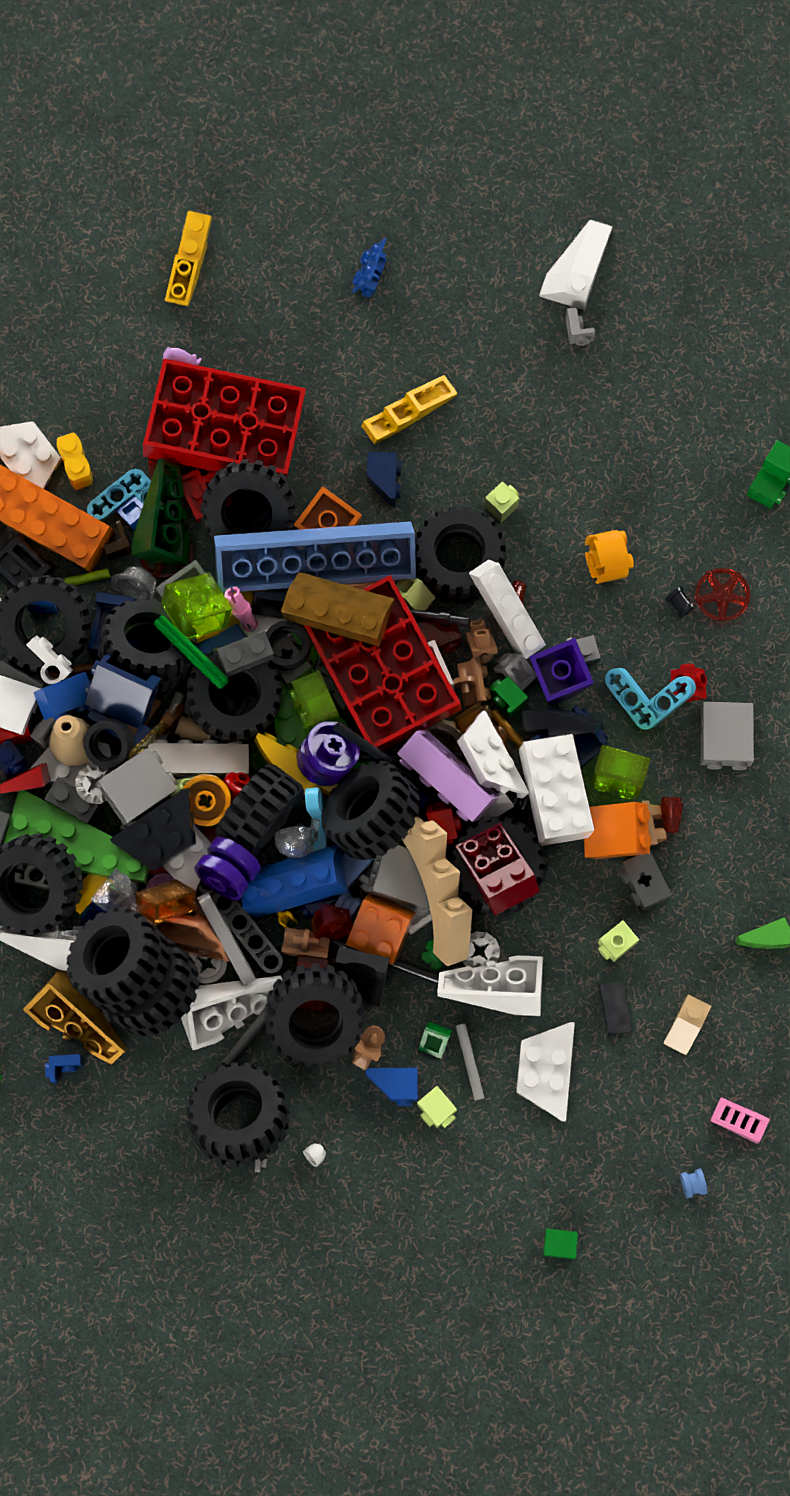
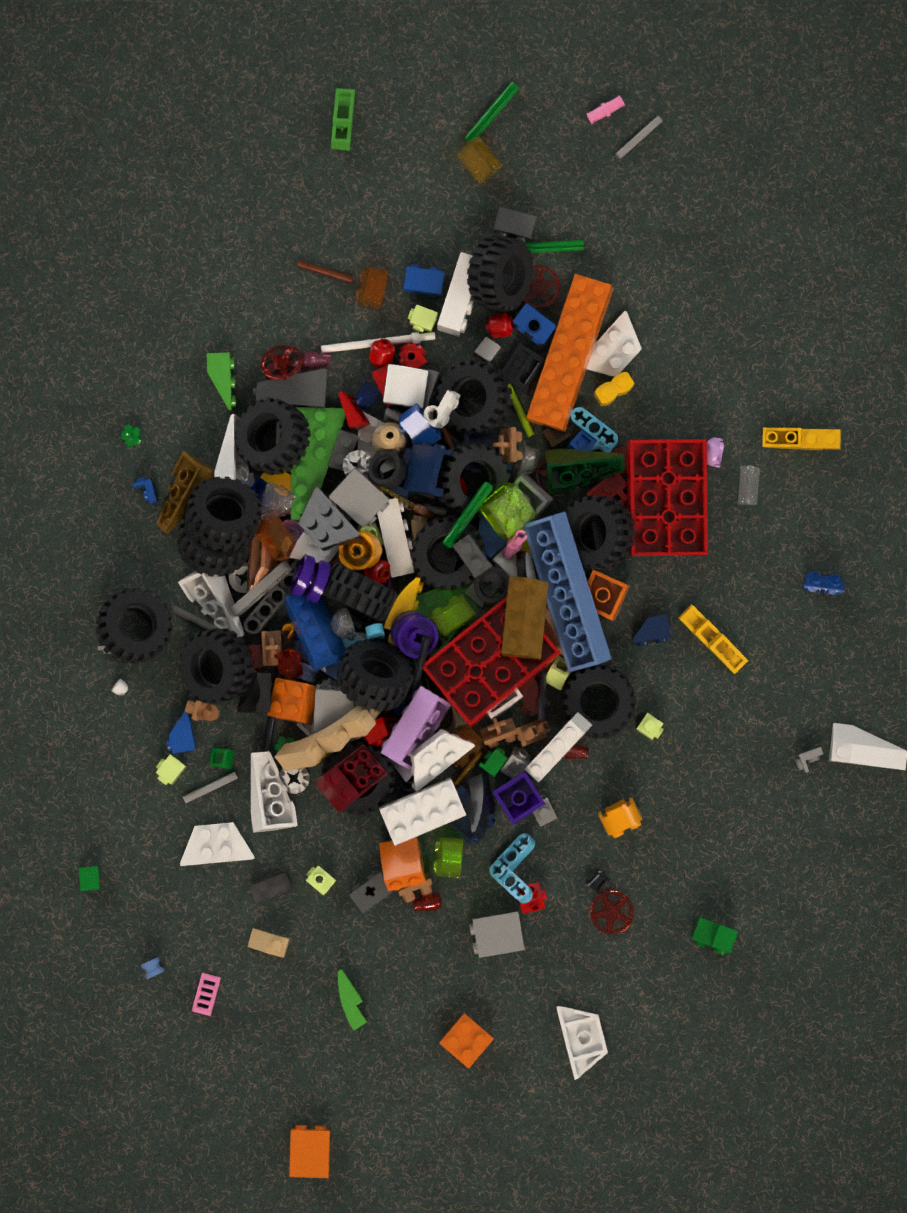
camera: 80 degrees right, 10 degrees up
(112, 594) = (507, 445): none -> medium nougat hips
(230, 332) = (748, 485): none -> clear hinge

